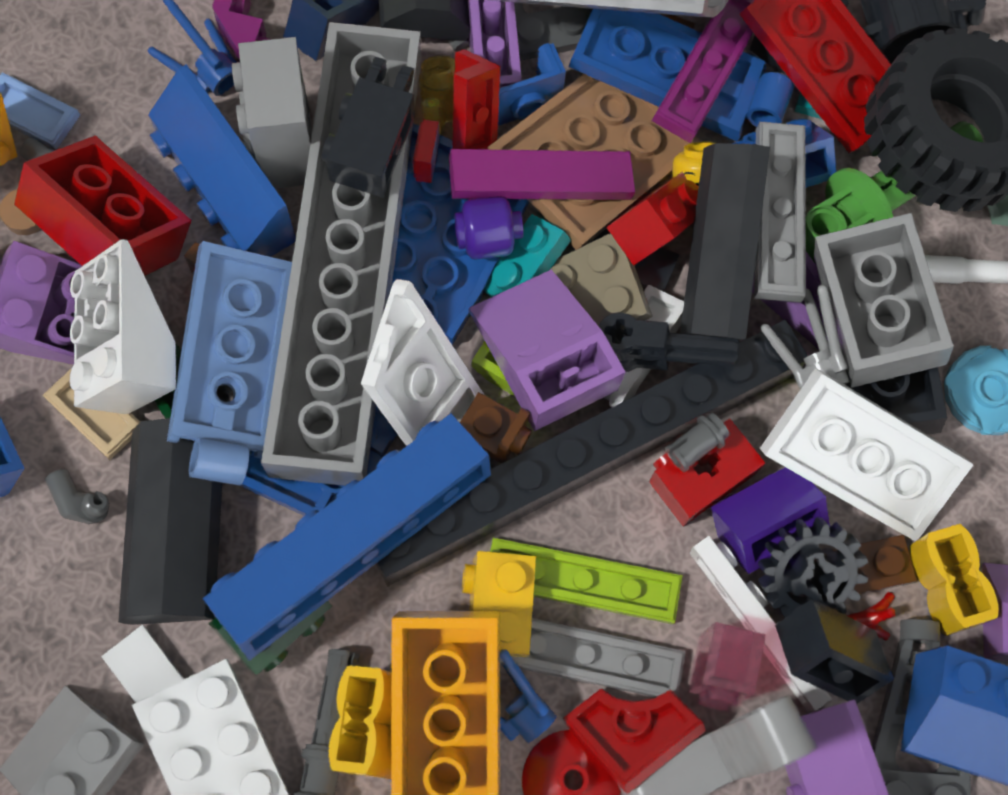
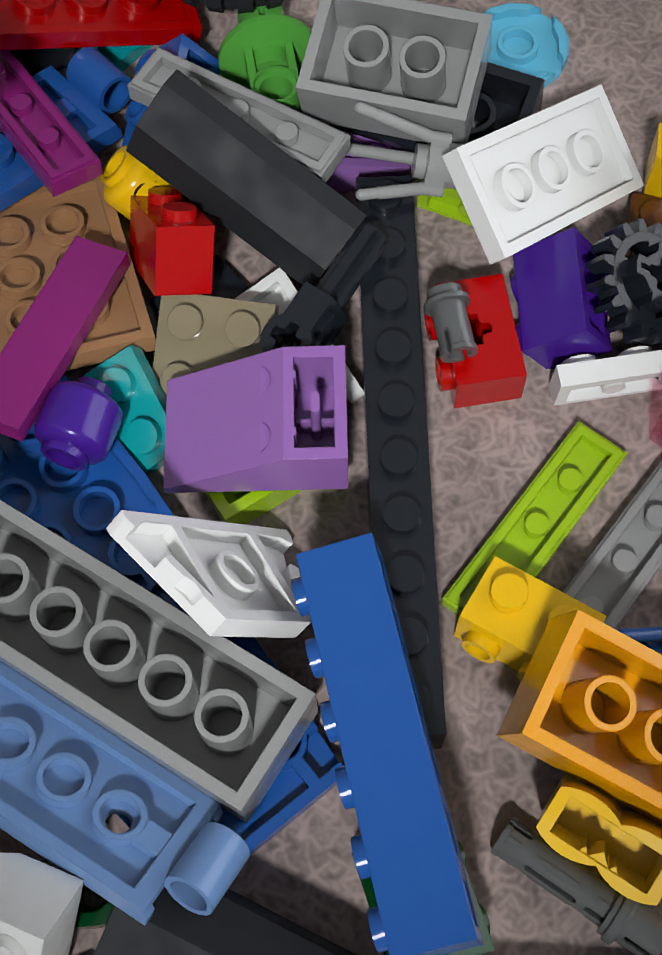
camera: 55 degrees left, 5 degrees down
(497, 427) = (323, 521): reddish brown bracket -> none

